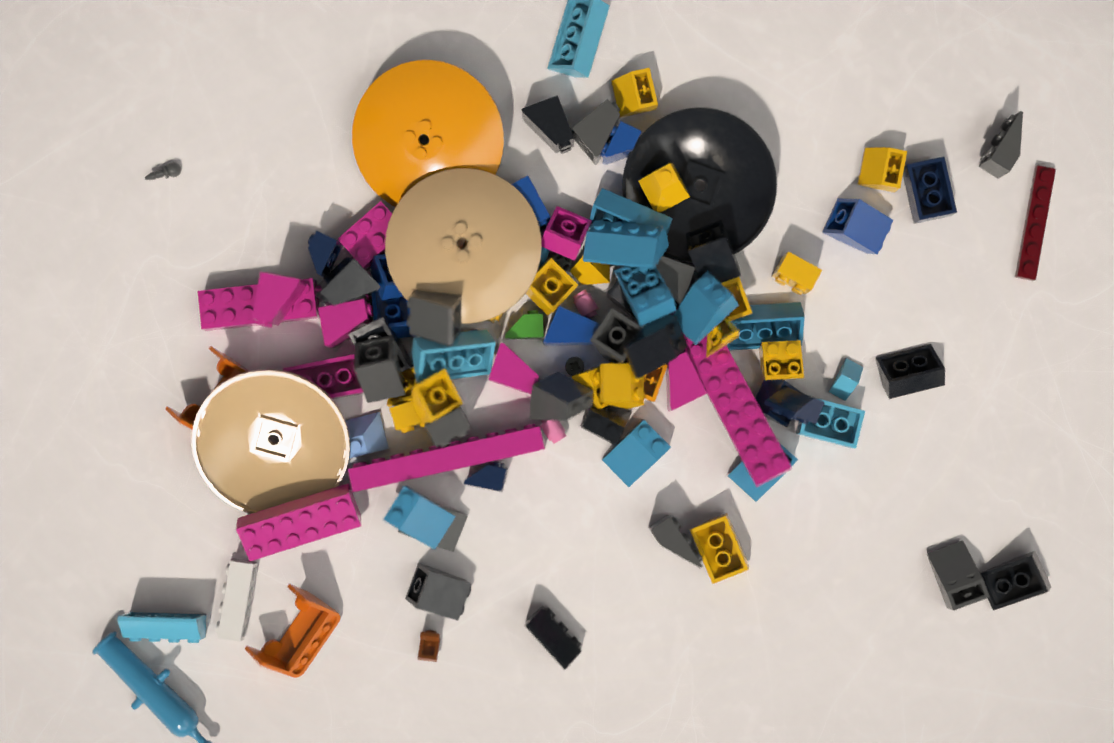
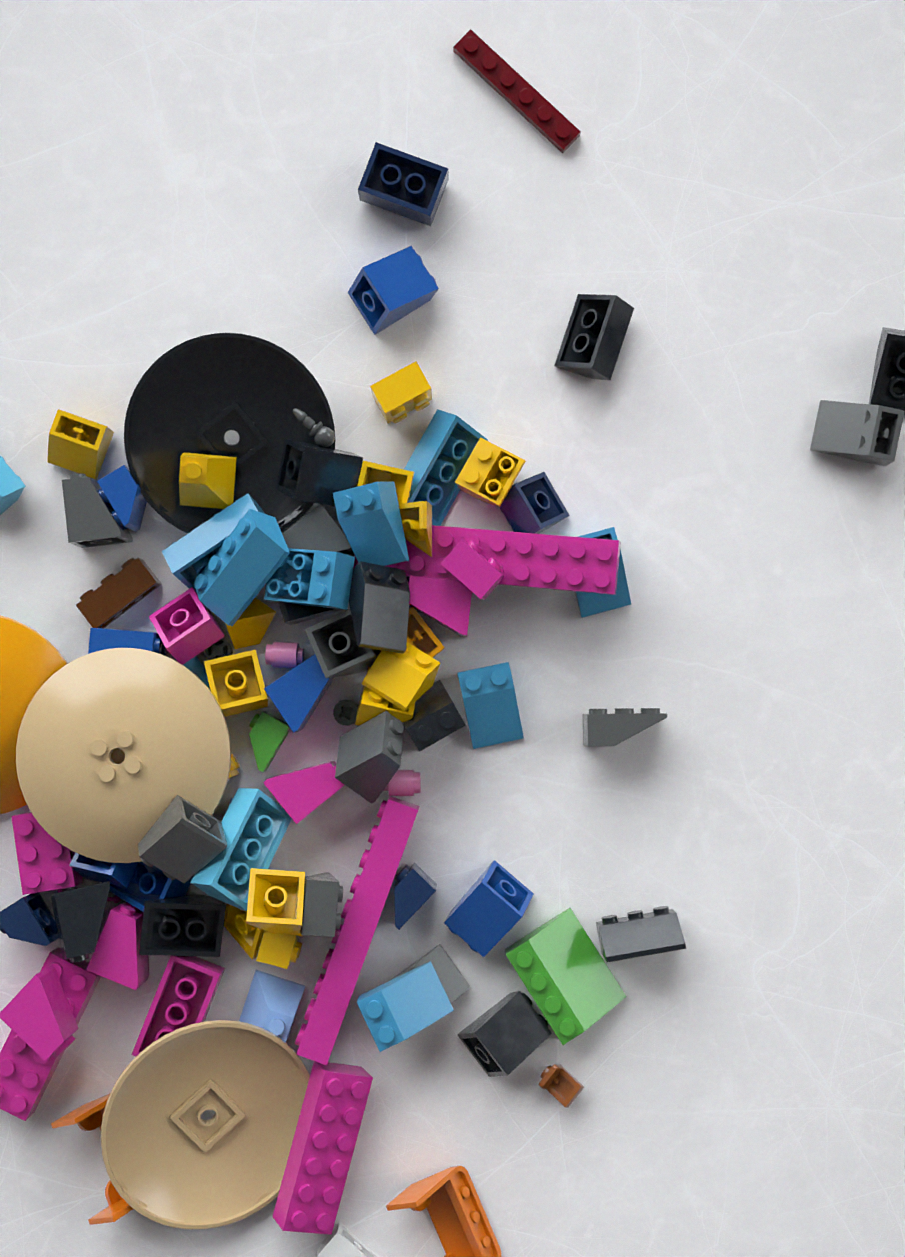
camera: 55 degrees left, 0 degrees up
(379, 369) = (203, 944): dark grey slope -> none
(498, 607) = (565, 975): none -> bright green slope
(509, 532) = (489, 909): none -> blue slope
(550, 124) = (49, 563): black slope -> none
(558, 177) = (118, 593): none -> reddish brown brick
(715, 388) = (473, 568): none -> dark pink brick
(719, 548) = (658, 679): yellow slope -> none
(738, 242) = (322, 435): none -> dark grey bar
(795, 405) = (551, 490): dark blue slope -> none
(835, 425) = (594, 463): medium azure brick -> none
(846, 379) = (558, 414): medium azure slope -> none
(882, 168) = (345, 220): yellow slope -> none
(1004, 148) = (410, 69): dark grey slope -> none

